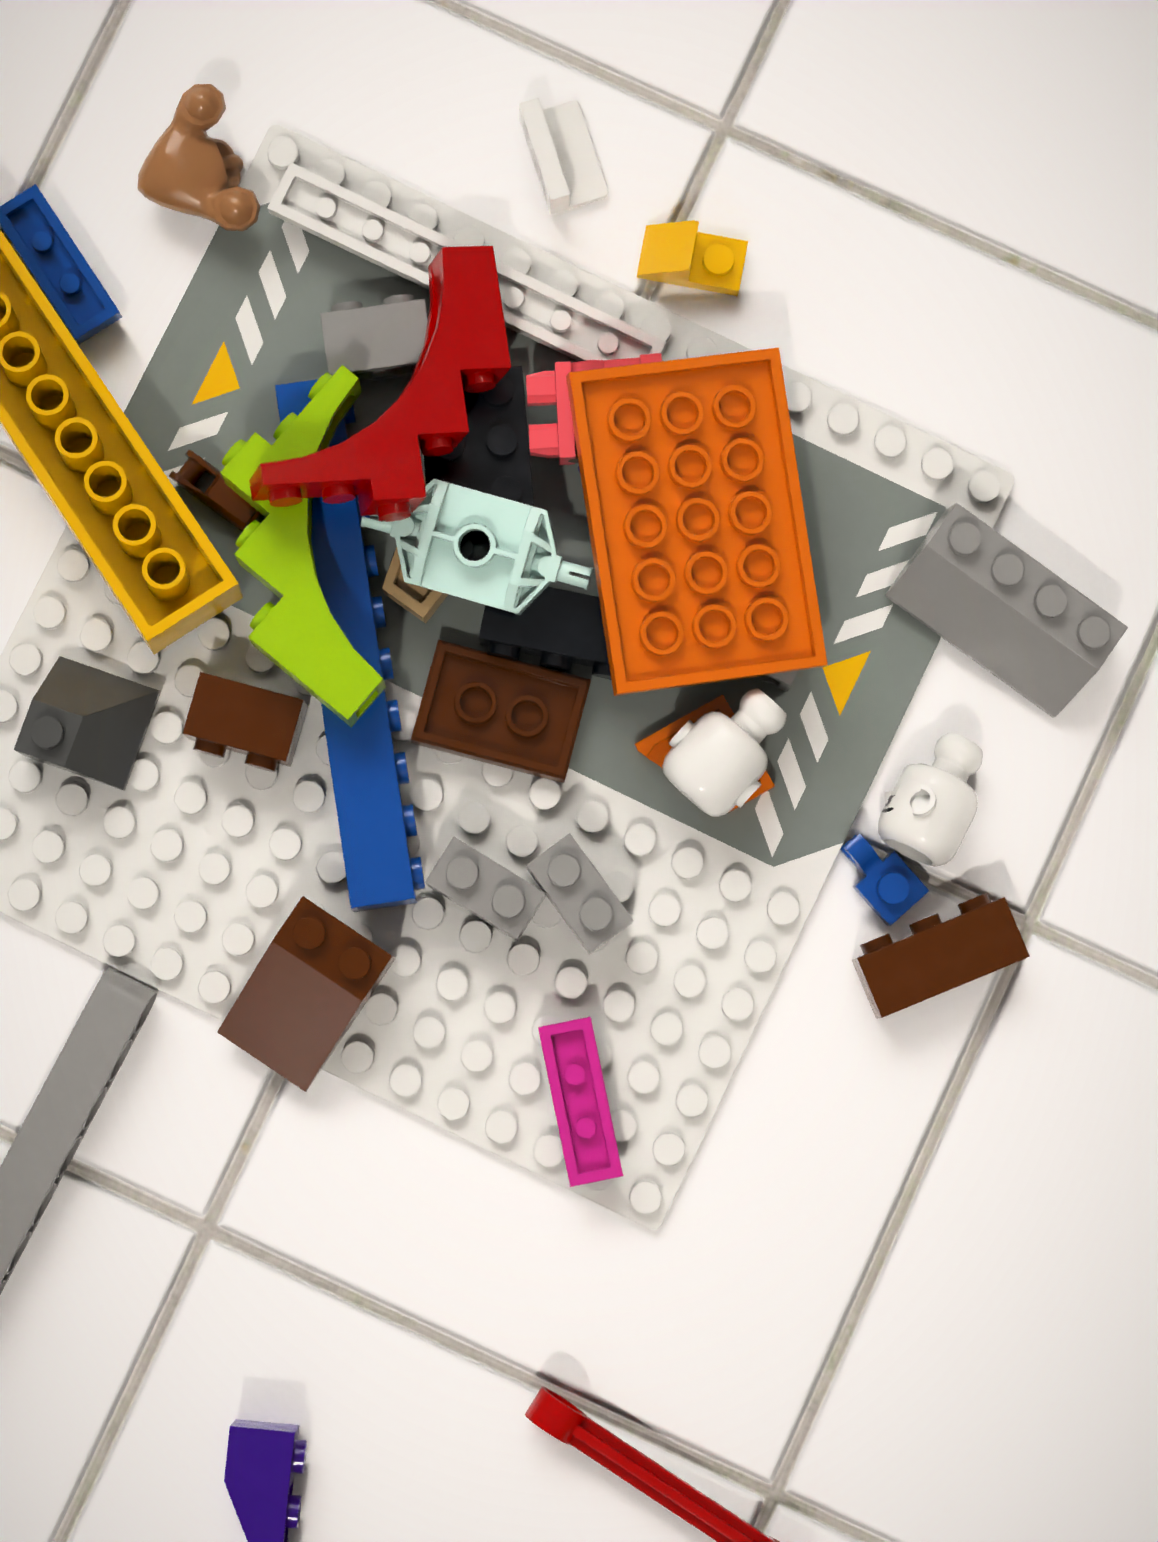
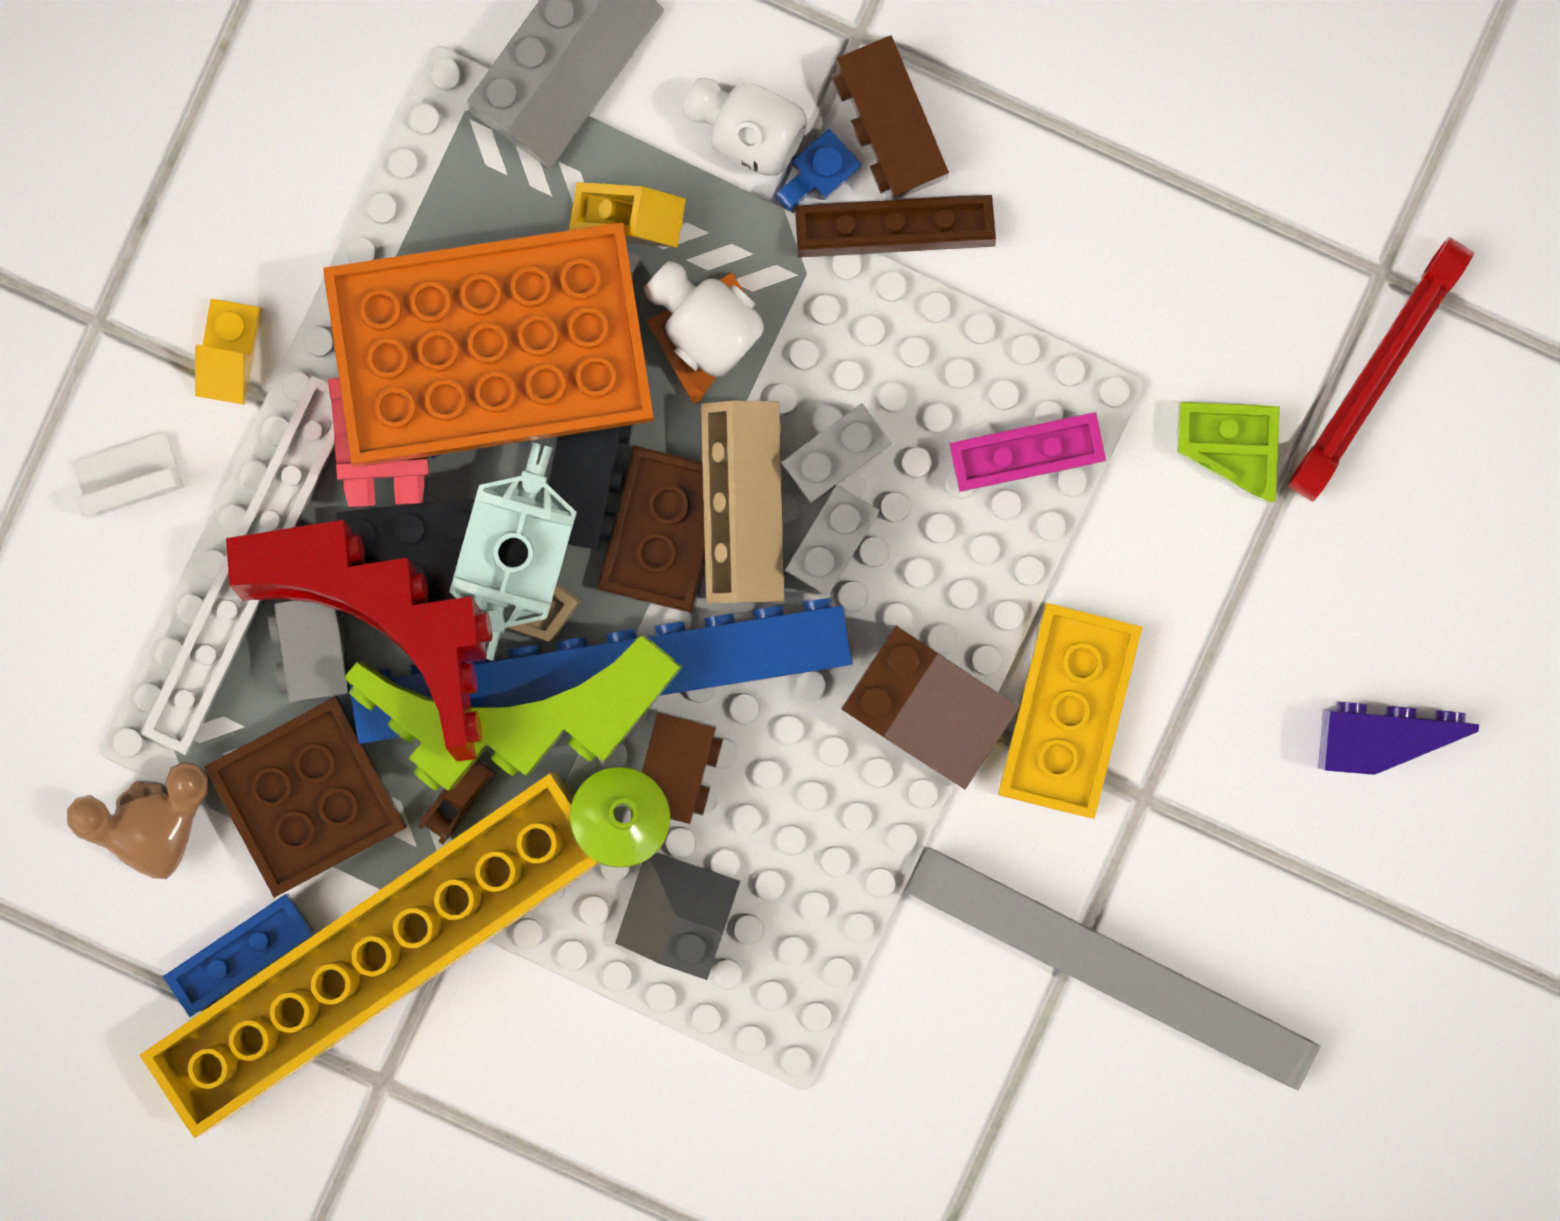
camera: 85 degrees left, 5 degrees up
(161, 652) = (602, 835): none -> lime dish
(221, 333) = (305, 796): none -> reddish brown plate
(301, 1147) = (1070, 710): none -> yellow plate
(527, 793) = (742, 501): none -> tan brick
(589, 1327) = (1233, 443): none -> lime wing
(824, 961) = (895, 226): none -> reddish brown tile
(837, 690) = (646, 213): none -> yellow slope

